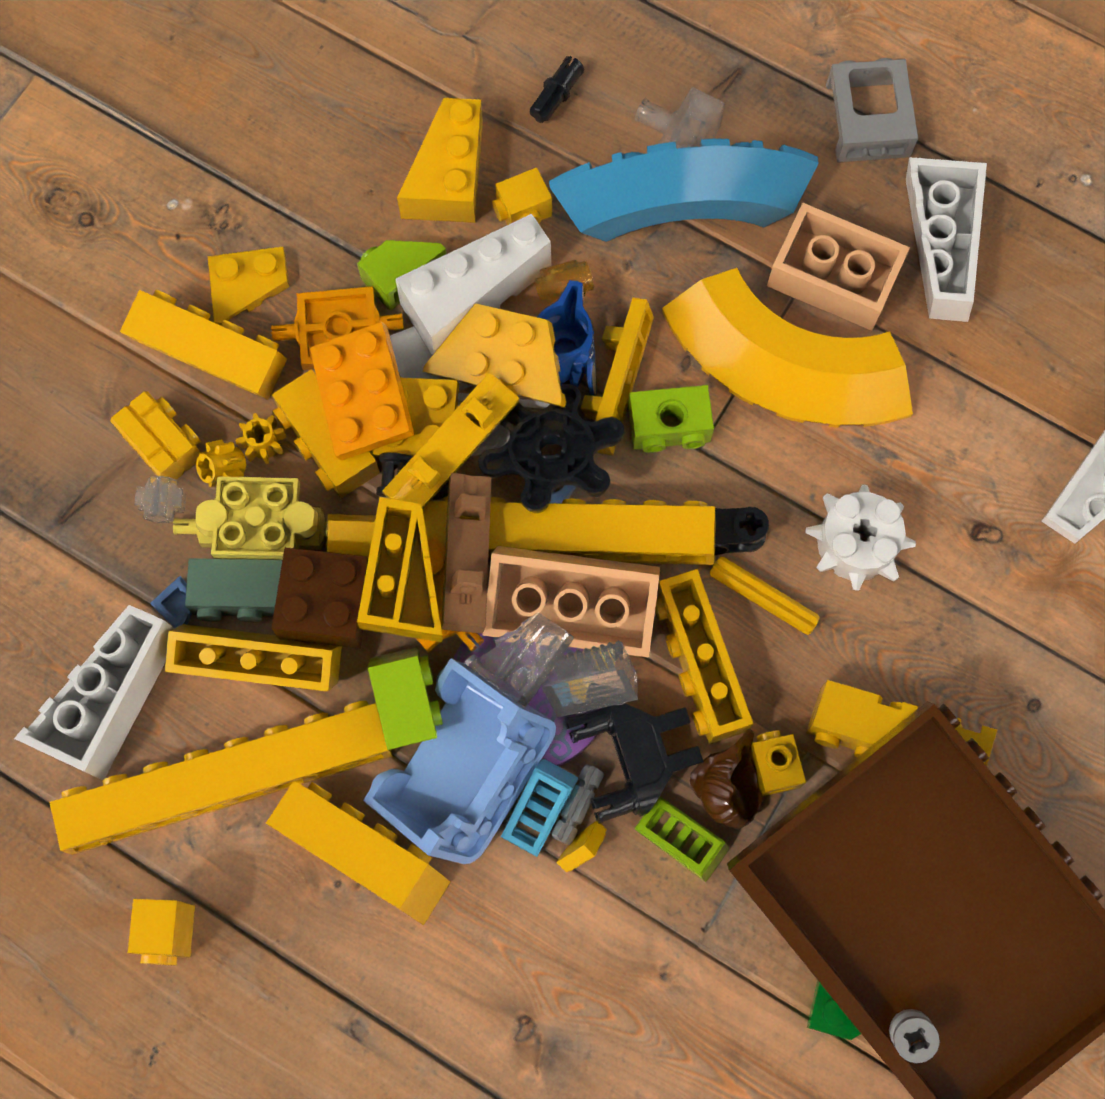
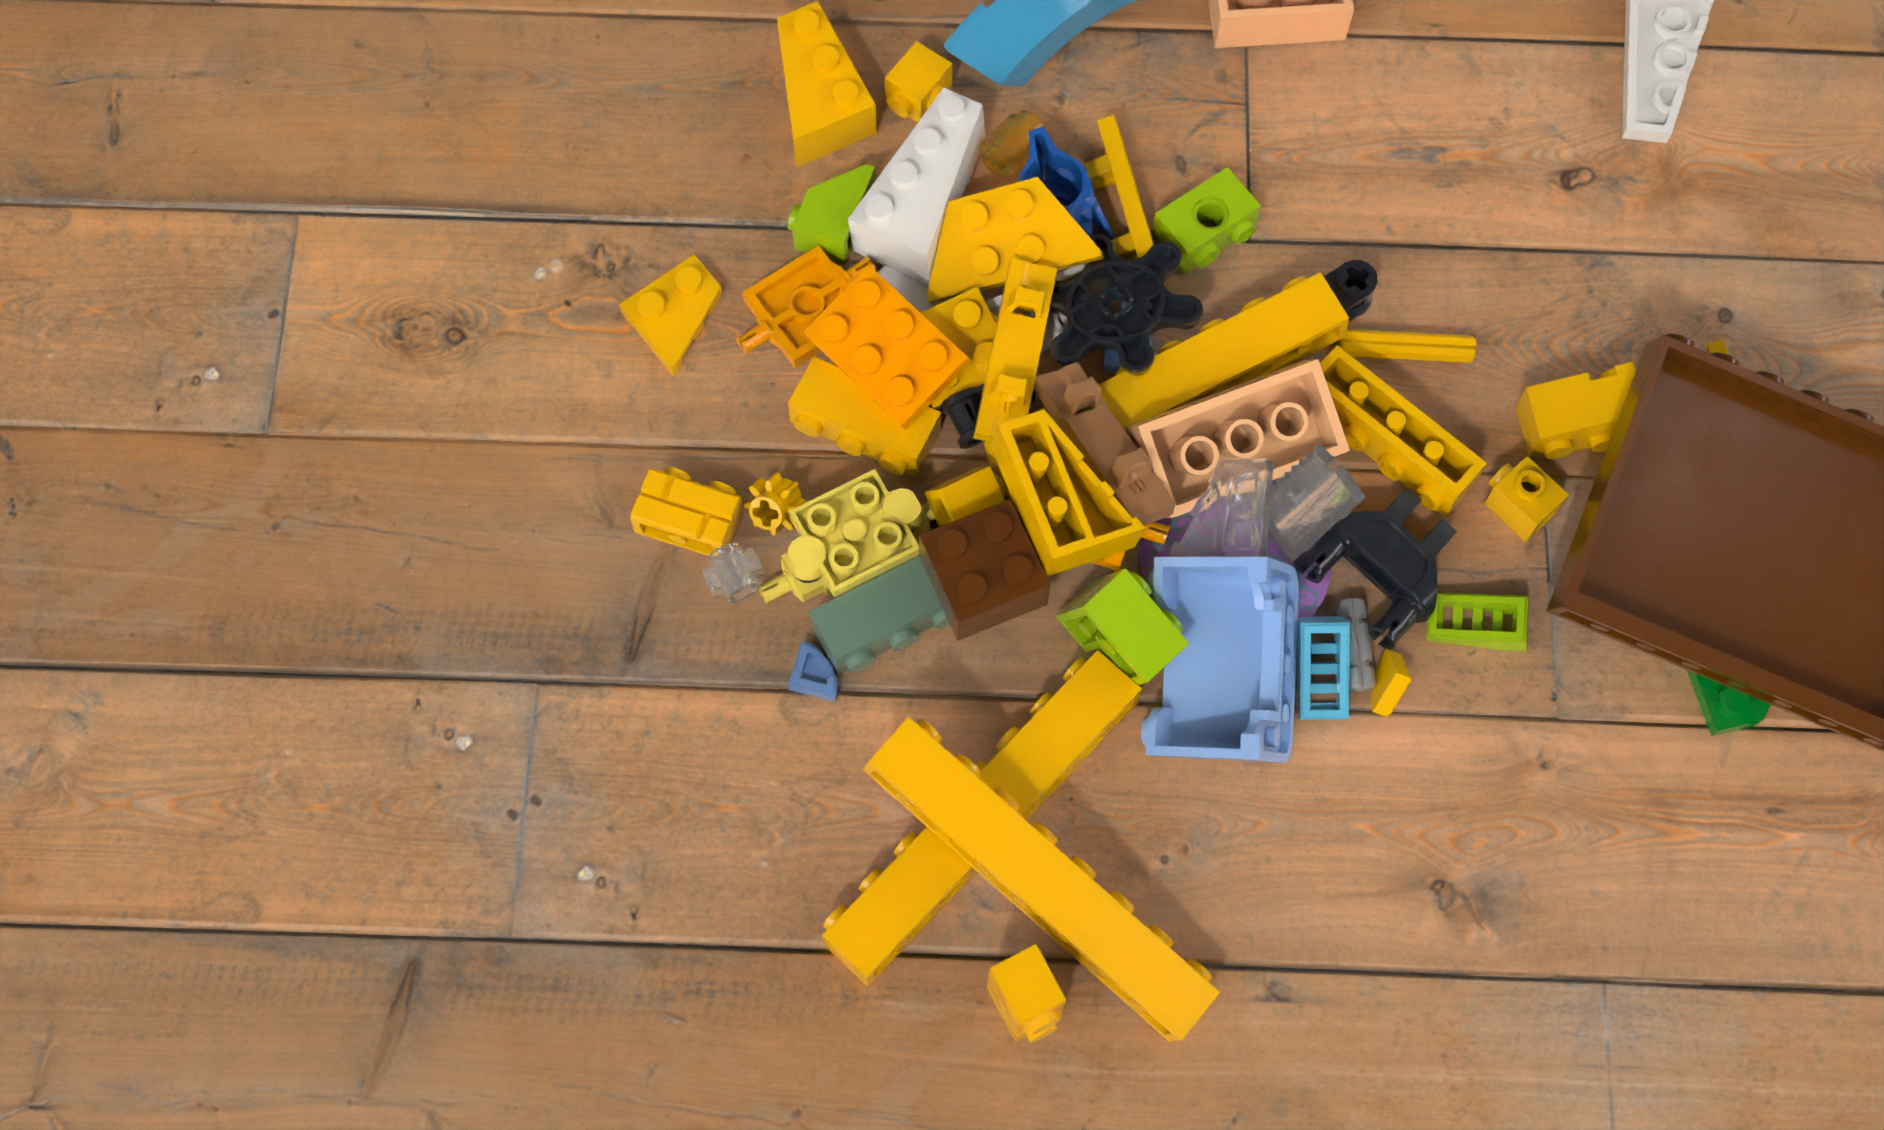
camera: 30 degrees left, 5 degrees down
(103, 696) = (804, 813): white wedge -> none
(204, 344) = (677, 391): yellow brick -> none
(221, 852) = (1042, 880): none -> yellow brick
(252, 658) = (940, 675): yellow brick -> none
(255, 428) = (799, 444): yellow gear -> none
(359, 851) = (1171, 804): yellow wedge -> none
(729, 784) = (1491, 542): reddish brown hair -> none
(786, 366) = (1281, 112): yellow brick -> none
(843, 550) = (1466, 237): white brick -> none
(905, 1030) = (1818, 670): light grey wheel -> none

